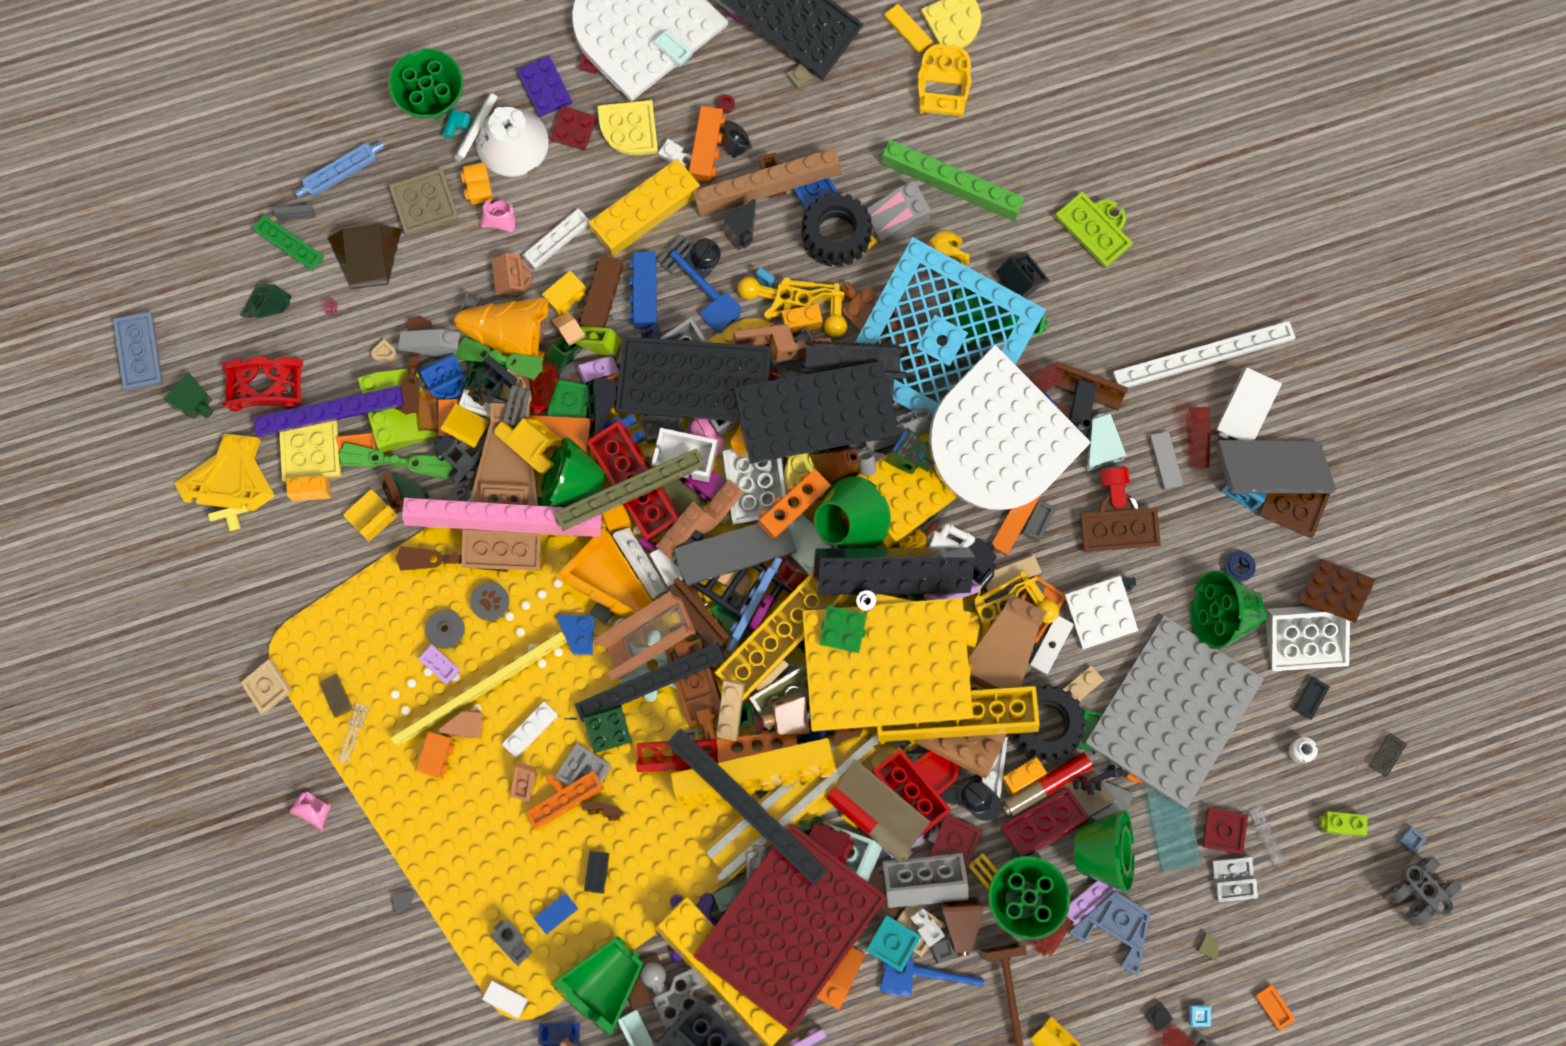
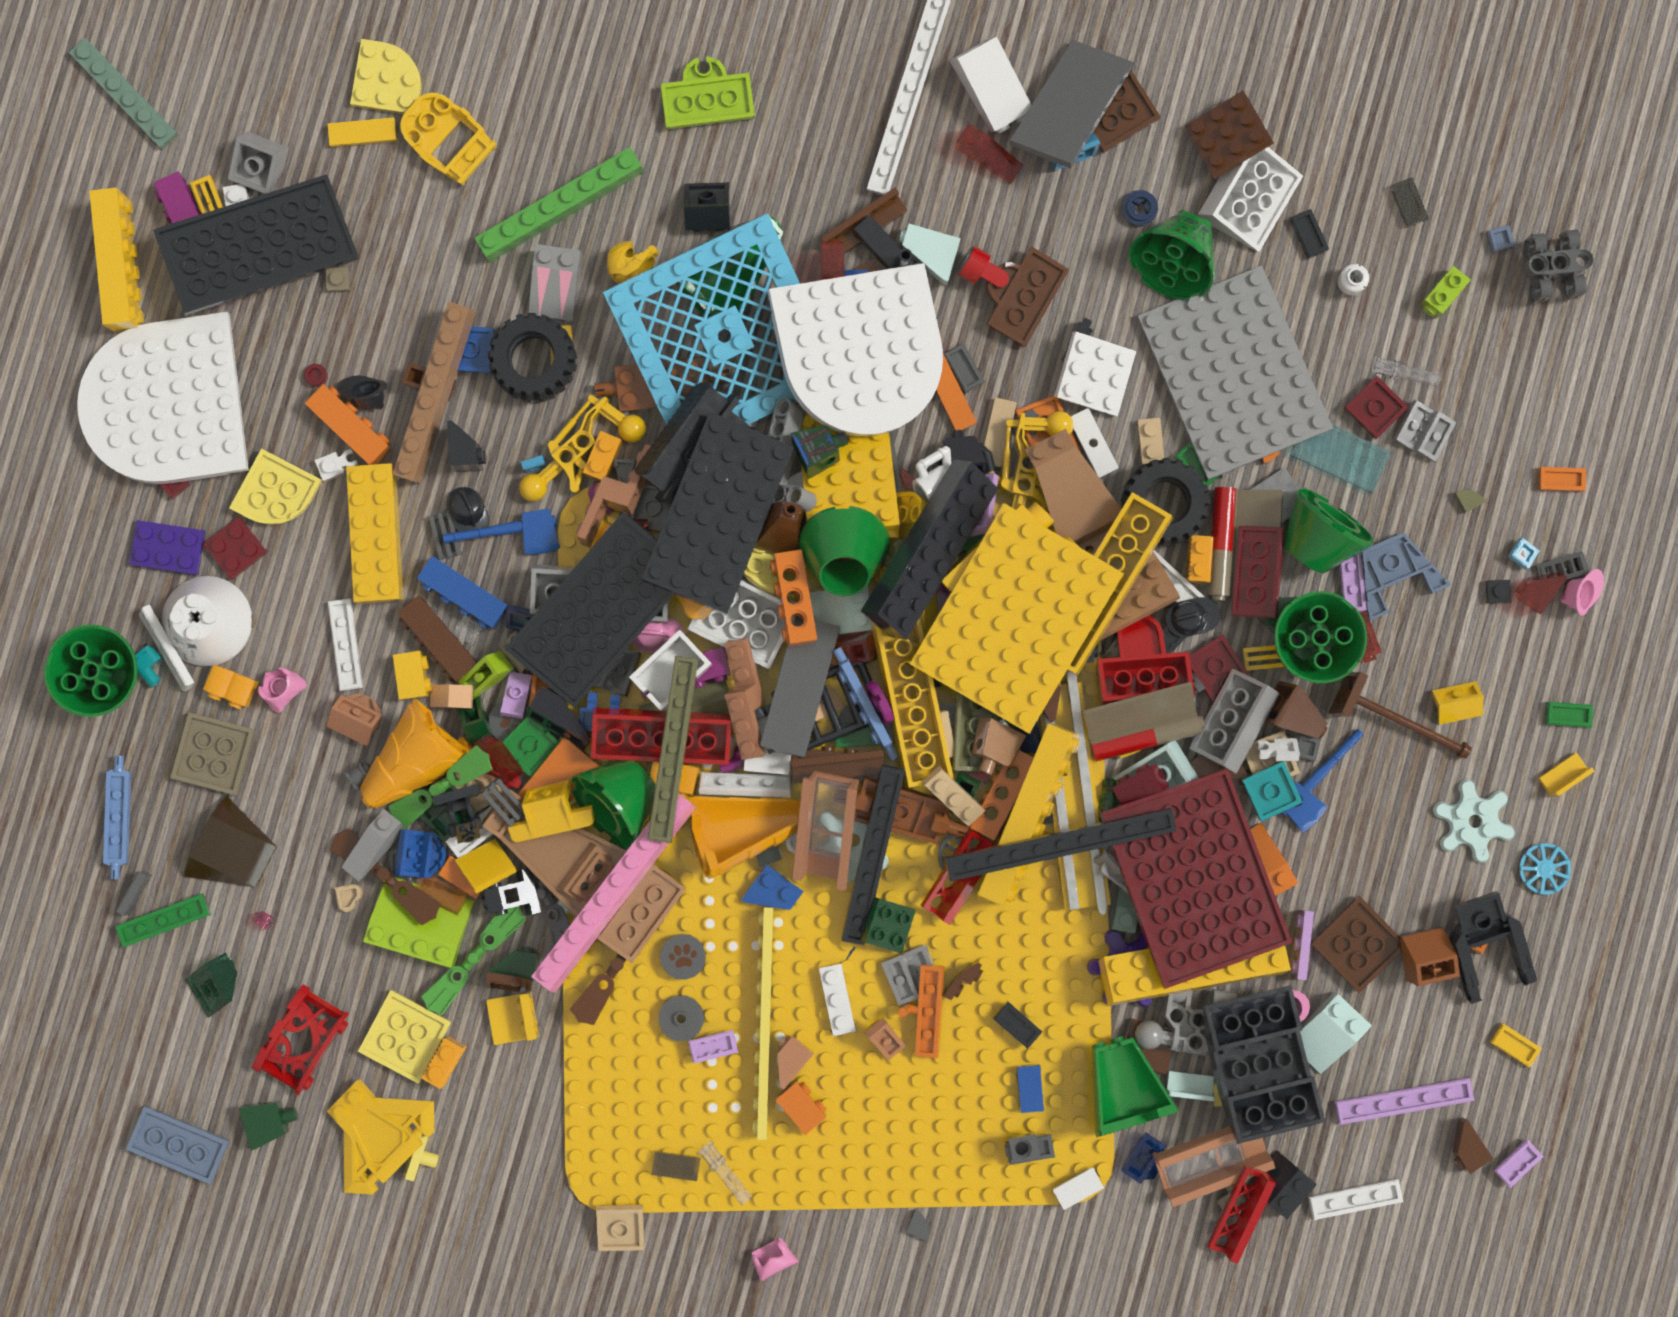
camera: 55 degrees left, 10 degrees up
(328, 411) = (379, 992): dark purple plate -> none
(361, 439) = (431, 973): orange tile -> none
(672, 48) = (220, 389): light aqua tile -> none
(843, 629) = (956, 637): green plate -> none
(866, 600) = (943, 596): plate -> none
(1095, 783) = (1252, 499): black bar -> none
(1166, 460) = (989, 201): light grey tile -> none

